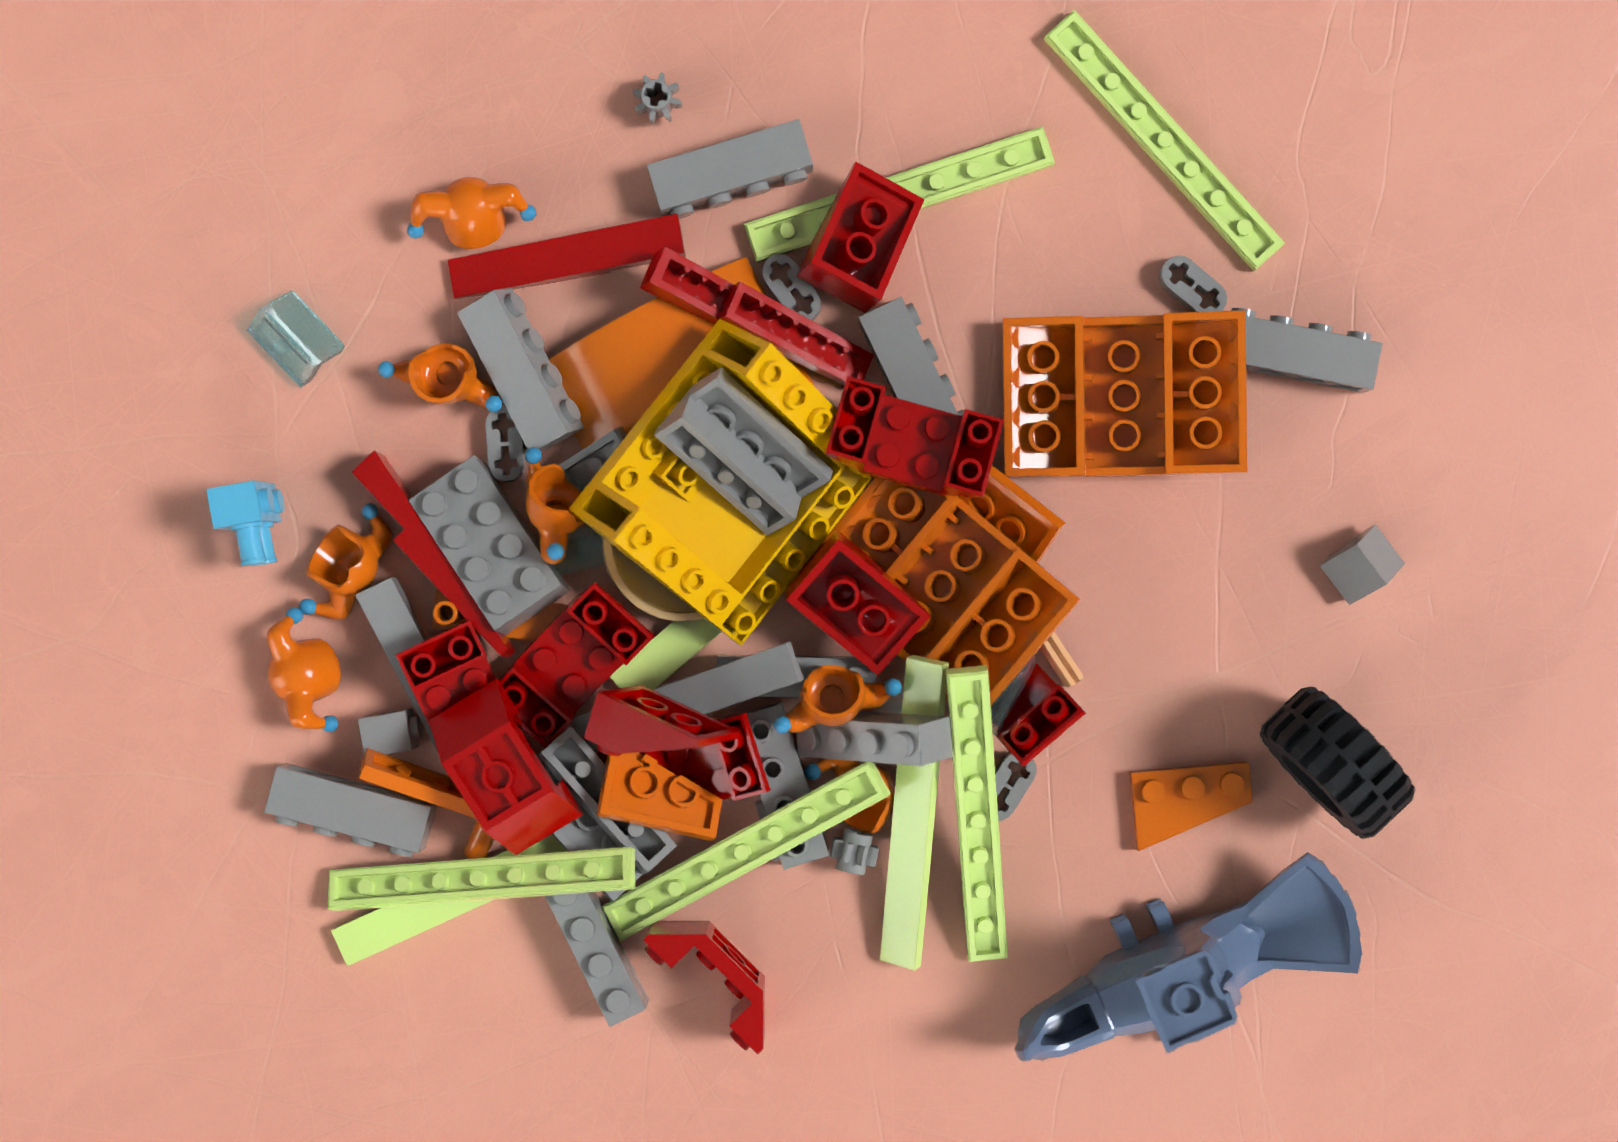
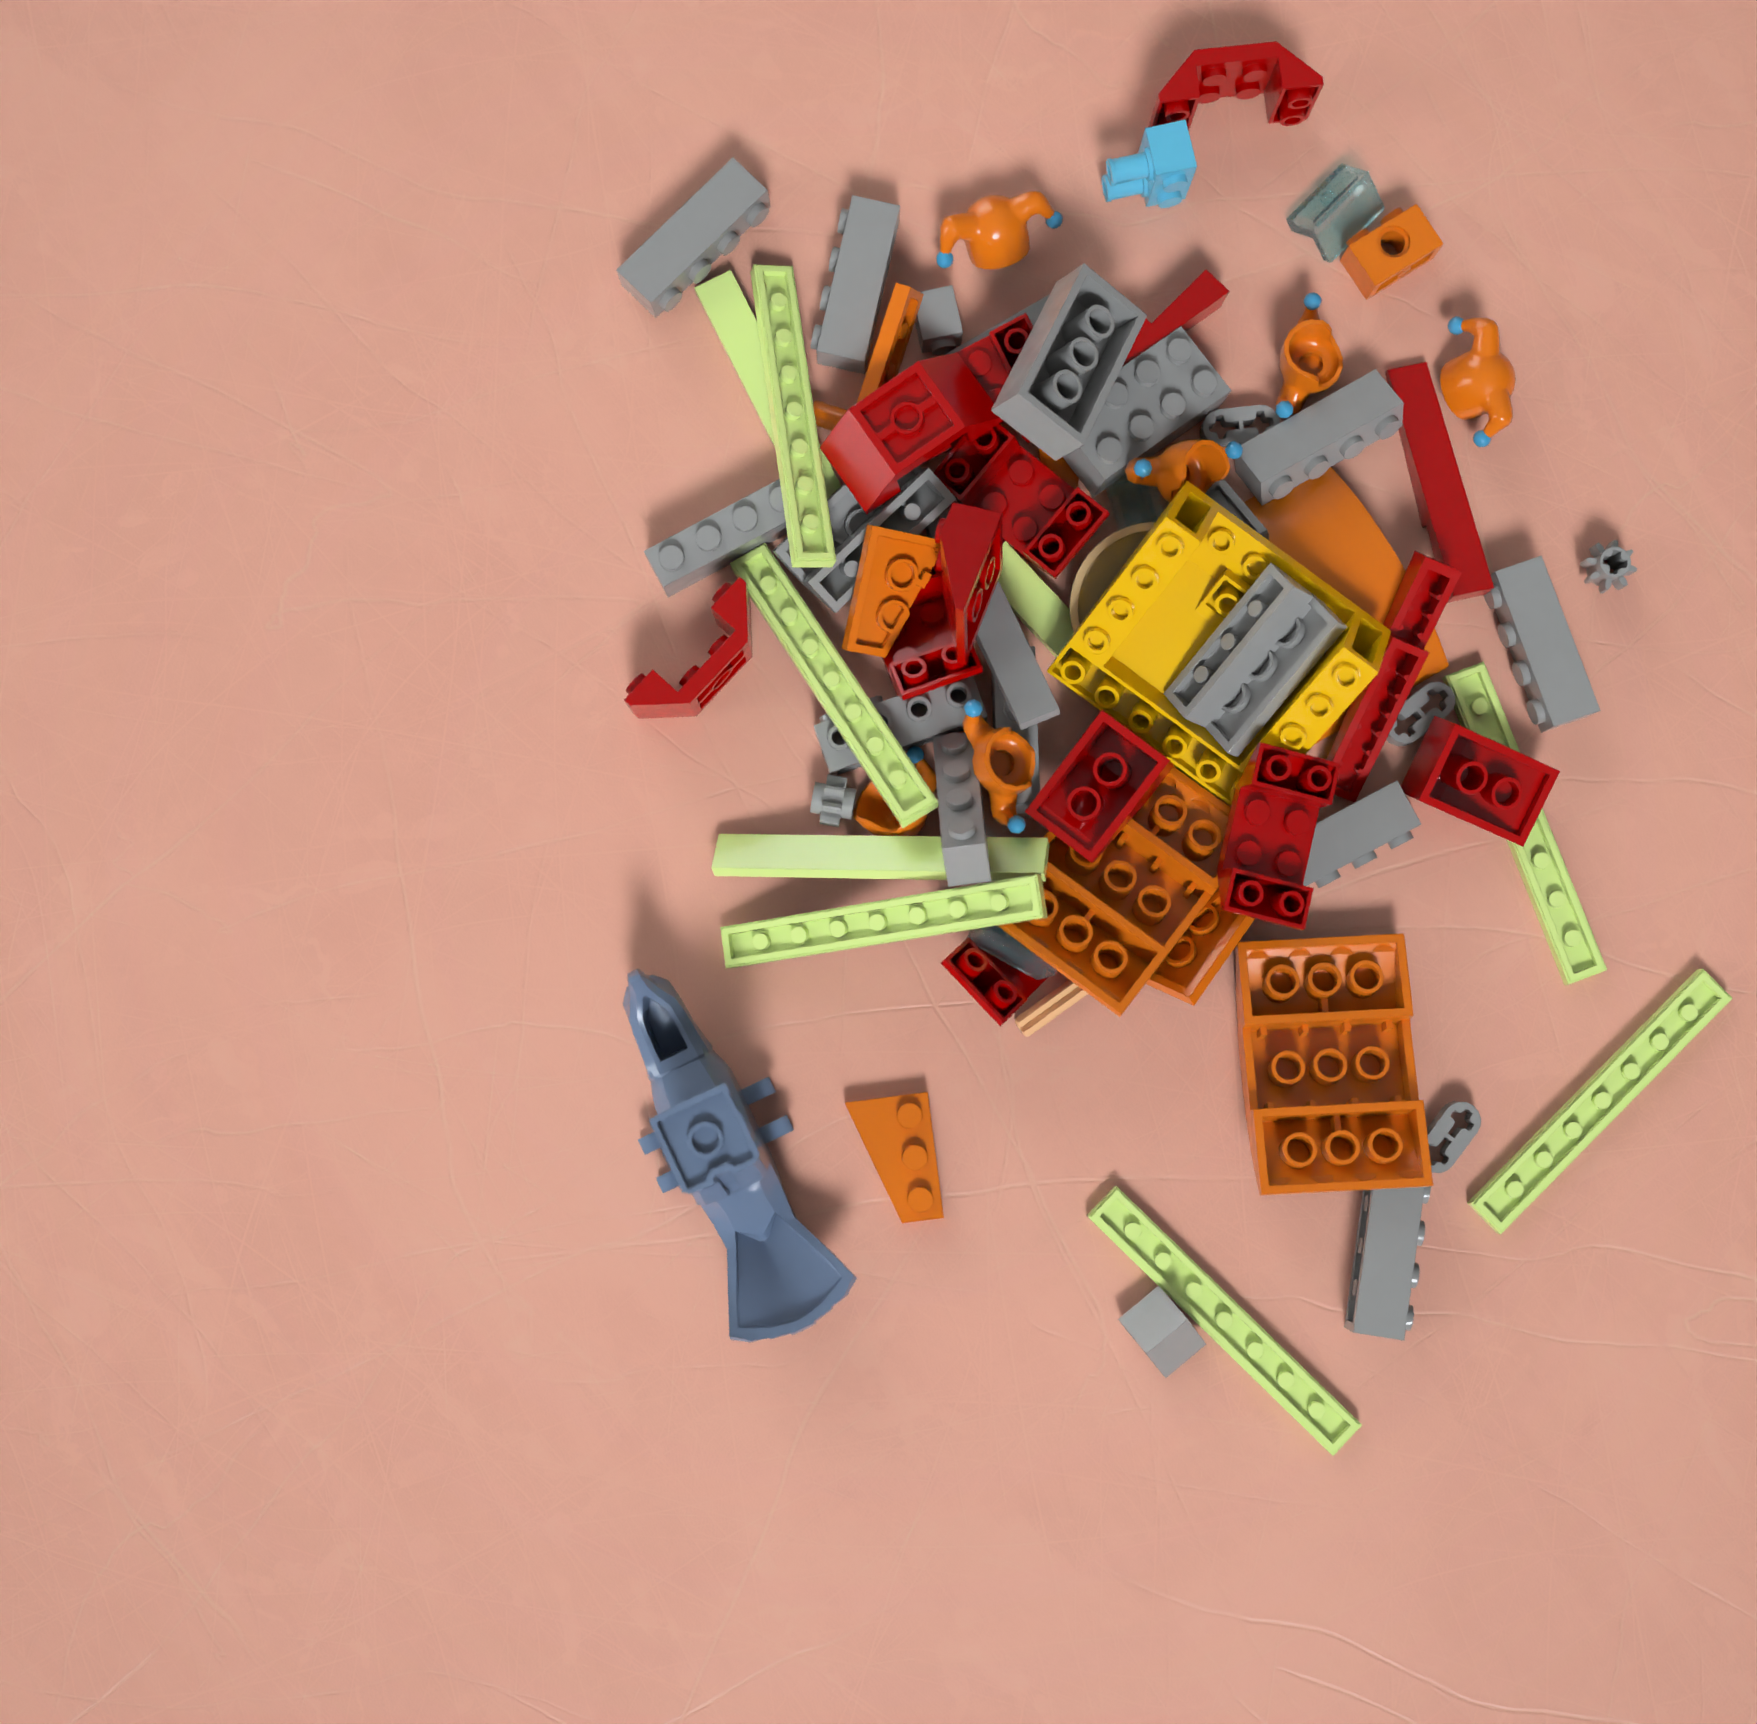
camera: 80 degrees right, 5 degrees down
(153, 425) = (1242, 72): none -> red slope
(300, 965) = (695, 238): none -> light grey brick
(346, 564) = (1113, 261): orange piece -> none
(355, 304) = (1373, 267): none -> orange brick
(450, 618) = (1069, 362): none -> light grey brick
(1016, 789) = (907, 973): light grey beam -> none
(1337, 762) = (956, 1304): black tyre -> none
(1352, 505) = (1224, 1320): none -> yellowish green tile

